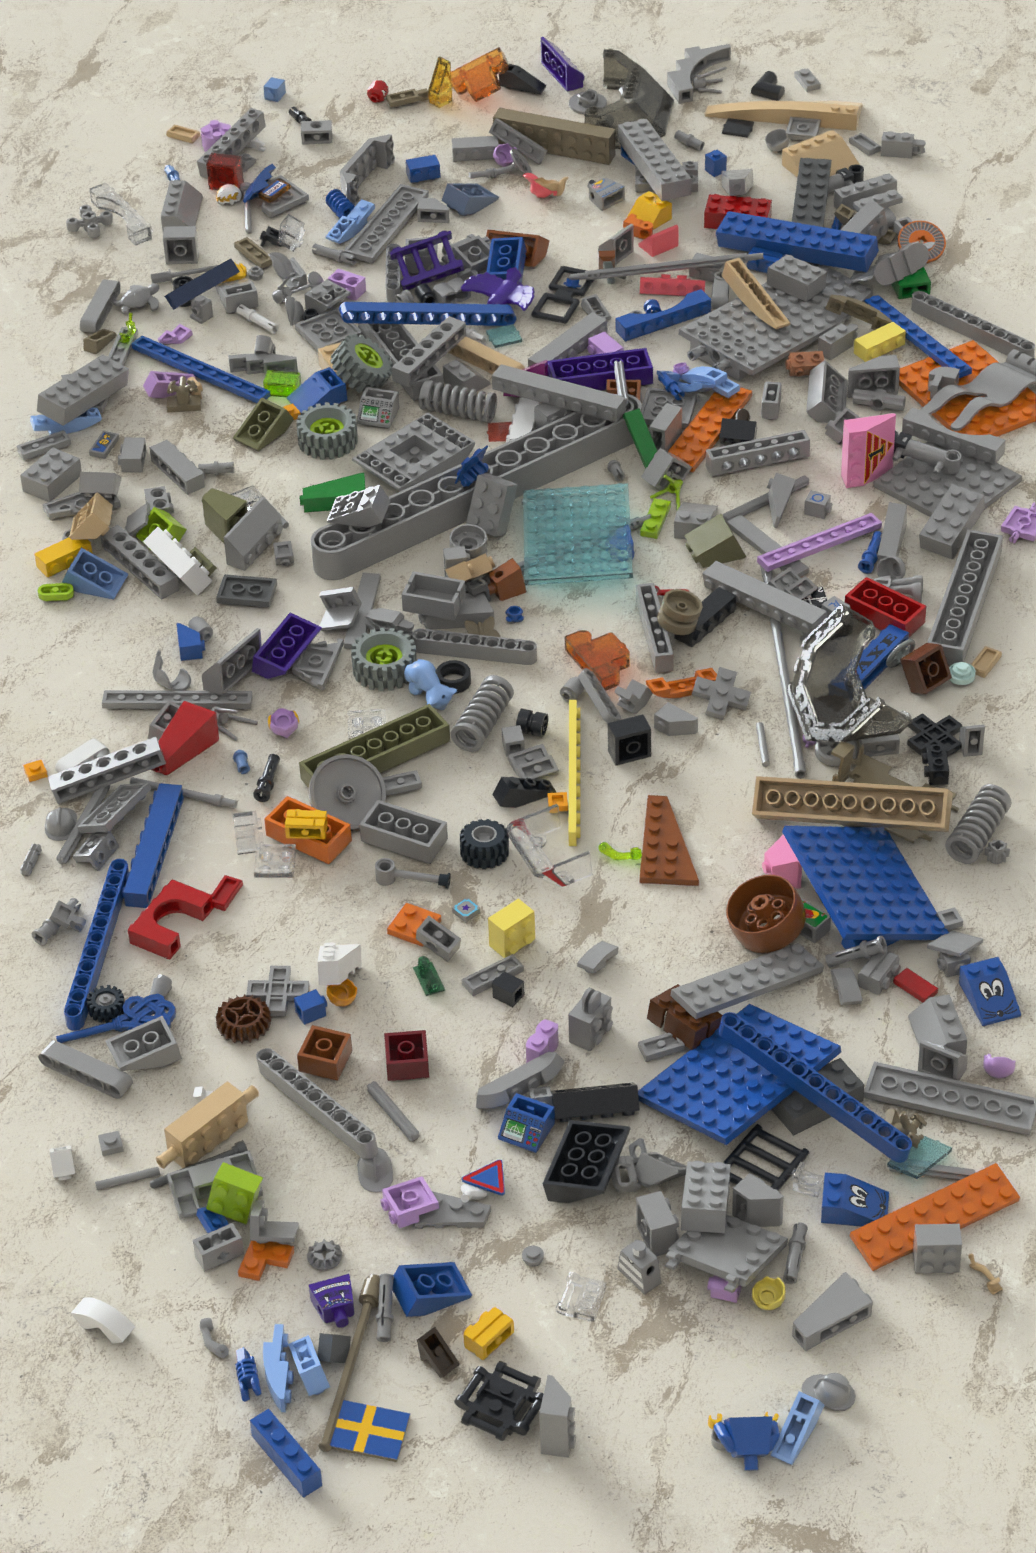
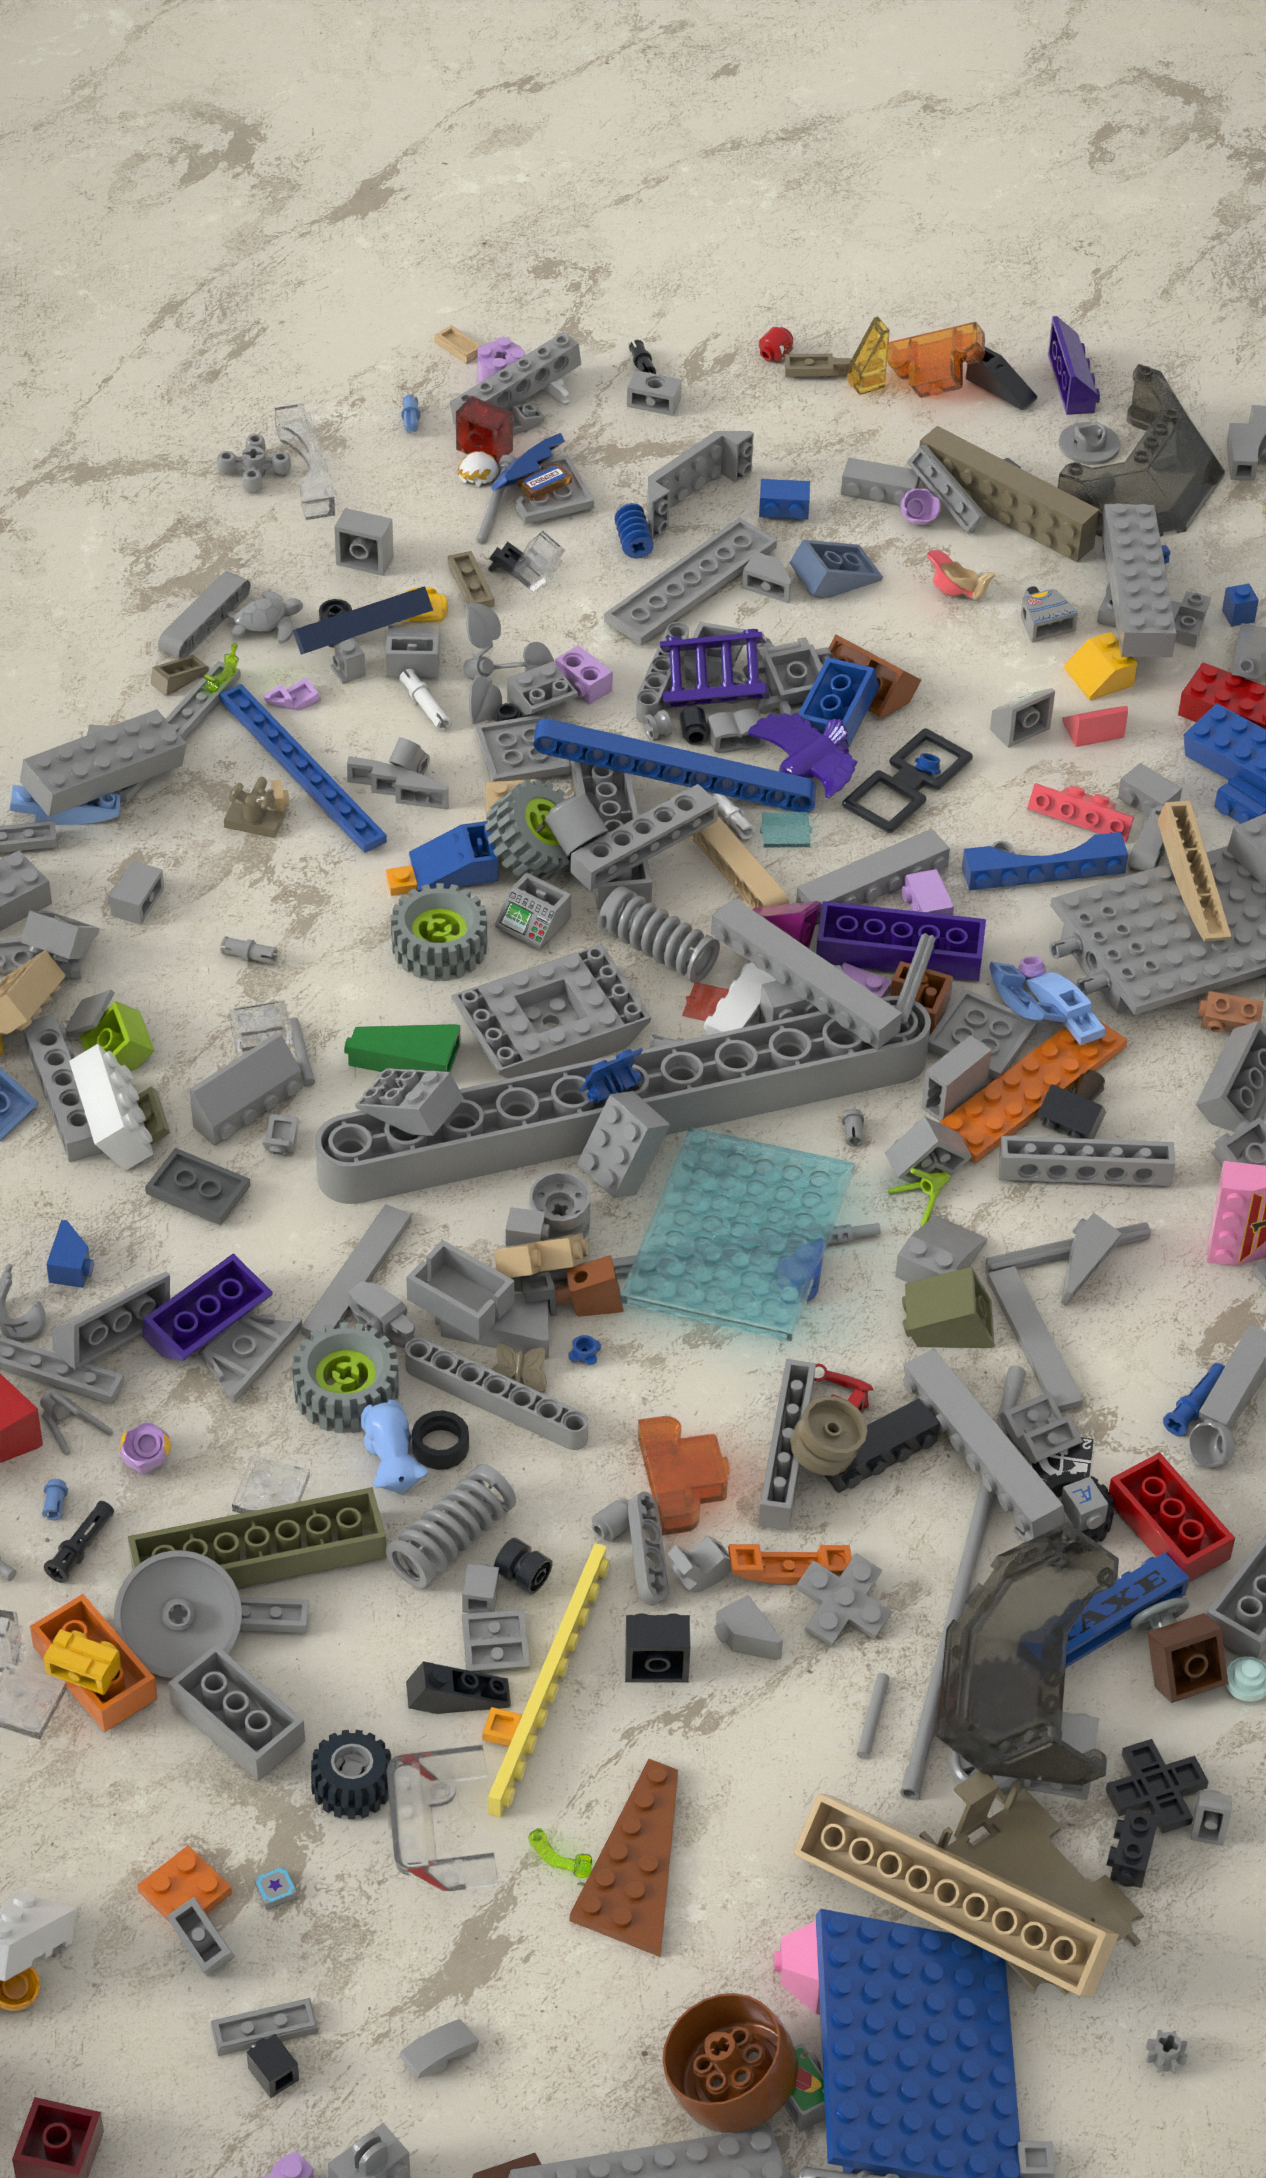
camera: 15 degrees right, 5 degrees up
(104, 444) = (104, 860): tile -> none
(158, 382) = (226, 773): lavender slope -> none
(159, 498) = (136, 987): light grey brick -> none
(167, 276) = (327, 588): light grey piece -> none
(177, 467) = (192, 932): light grey brick -> none
(181, 205) = (396, 473): light grey slope -> none
(201, 626) = (98, 1236): light grey brick -> none
(222, 511) = (217, 1035): olive slope -> none
(255, 273) = (457, 617): light grey plate -> none
(263, 425) = (349, 895): olive slope -> none
(274, 89) = (623, 302): medium blue brick -> none
(281, 382) = (410, 825): clear neon green brick -> none
(297, 276) = (513, 636): light grey hinge -> none
(340, 256) = (596, 620): light grey pin -> none
(341, 608) = (321, 1267): light grey bracket -> none
(351, 225) = (632, 572): light blue slope -> none
(386, 873) = (186, 1786): light grey piece -> none
(387, 351) = (575, 823): none -> light grey piece
(428, 976) = (162, 1999): clear green hinge -> none
(463, 376) = (689, 890): light grey slope -> none
(511, 928) = (321, 1955): light yellow brick -> none
(519, 163) = (931, 528): light grey dish -> none
(589, 301) = (949, 804): light grey slope -> none
(606, 261) = (995, 744): dark orange piece -> none
(640, 435) = (909, 1081): green tile -> none
(641, 228) = (1071, 689): orange leg -> none
(651, 304) = (1032, 843): blue wheel -> none
(658, 511) = (886, 1227): lime plate -> none
(663, 266) = (1082, 777): light grey axle -> none
(671, 386) = (999, 998): blue pin -> none
(689, 140) = (1217, 551): light grey pin -> none
(771, 400) = (1147, 1068): light grey brick -> none
(817, 504) = (1144, 1284): light grey brick -> none
(819, 542) = (1117, 1357): lavender plate -> none
(911, 585) = (1239, 1484): light grey piece -> none
(972, 818) = (1190, 1953): light grey piece -> none

